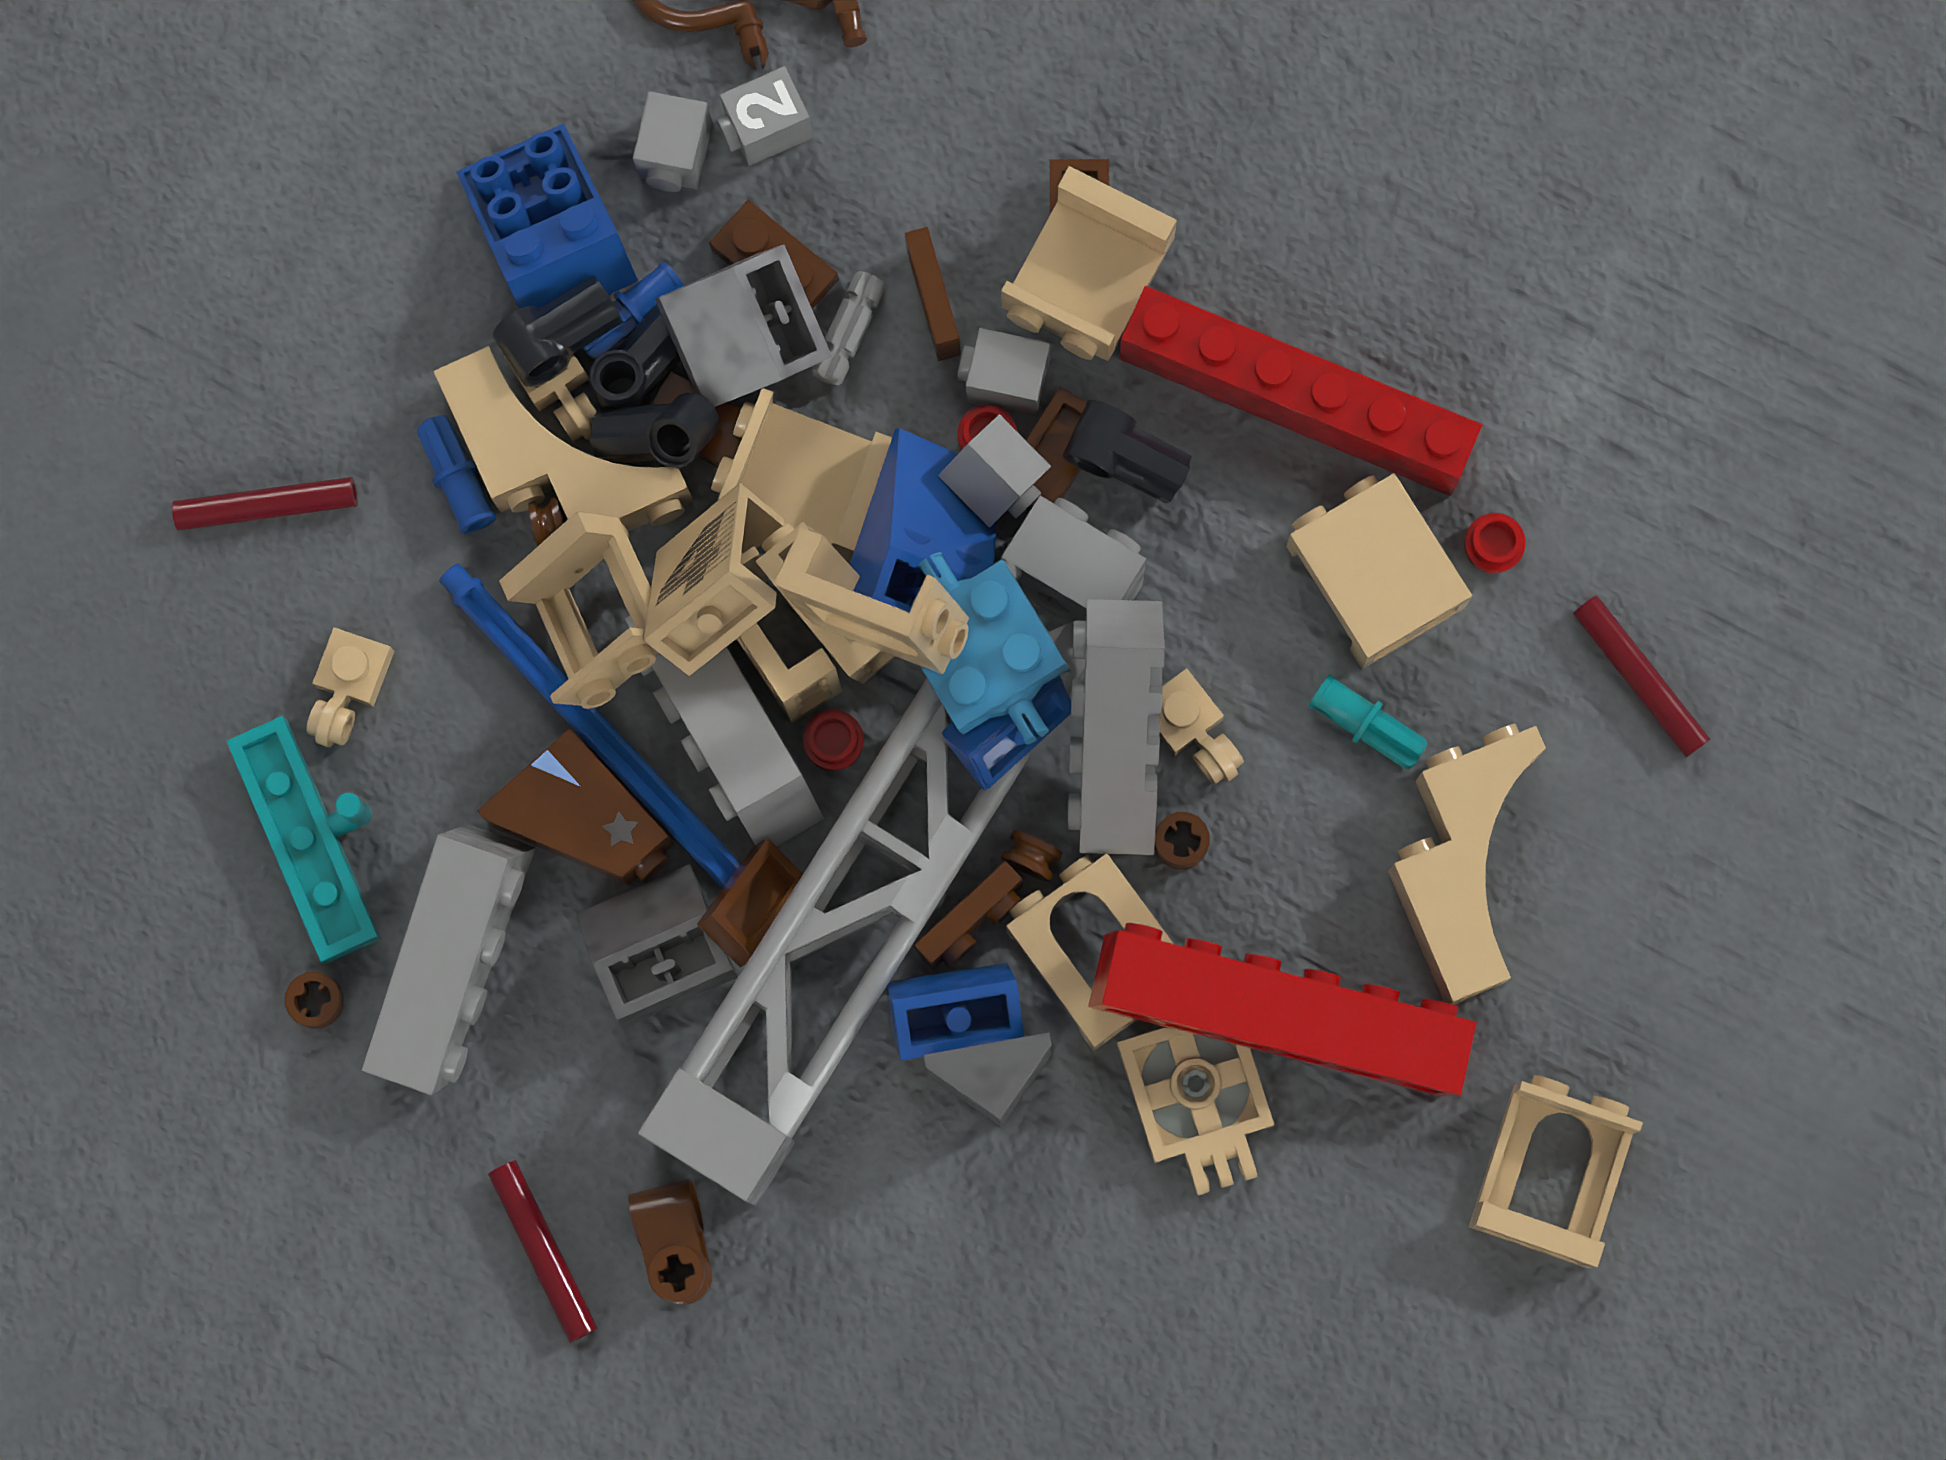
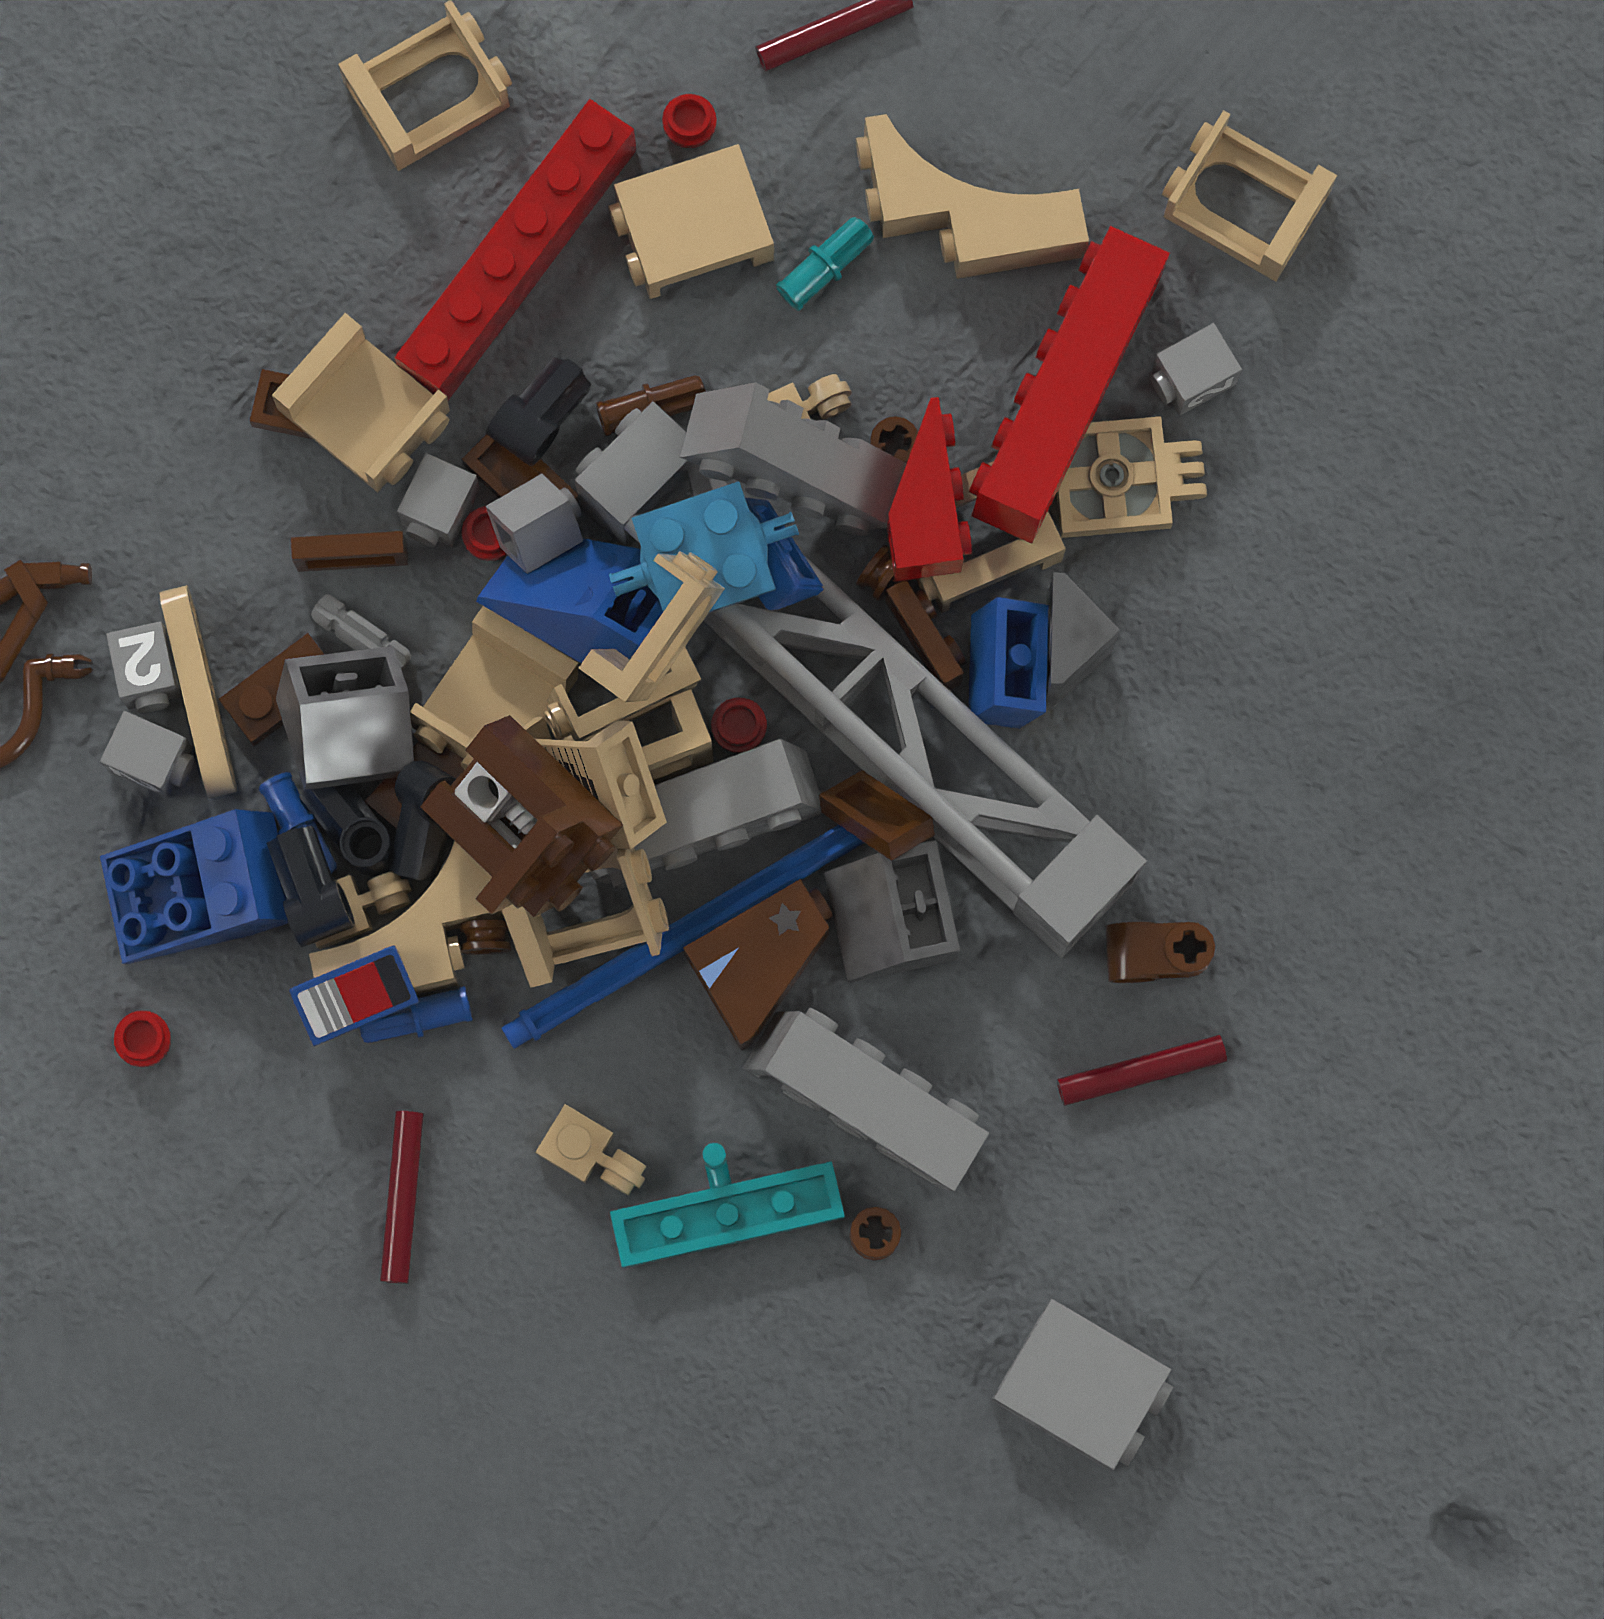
camera: 85 degrees left, 0 degrees up
(184, 1255) = (1084, 1386): none -> light grey brick
(380, 208) = (142, 1038): none -> red plate
(448, 400) = (354, 995): none -> slope
(646, 520) = (536, 832): none -> reddish brown brick
(750, 177) = (198, 692): none -> tan beam
(1094, 878) = (923, 515): none -> red slope
(1167, 572) = (670, 397): none -> reddish brown axle
(1337, 1152) = (1195, 370): none -> light grey brick
(1453, 194) = (449, 36): none -> tan panel

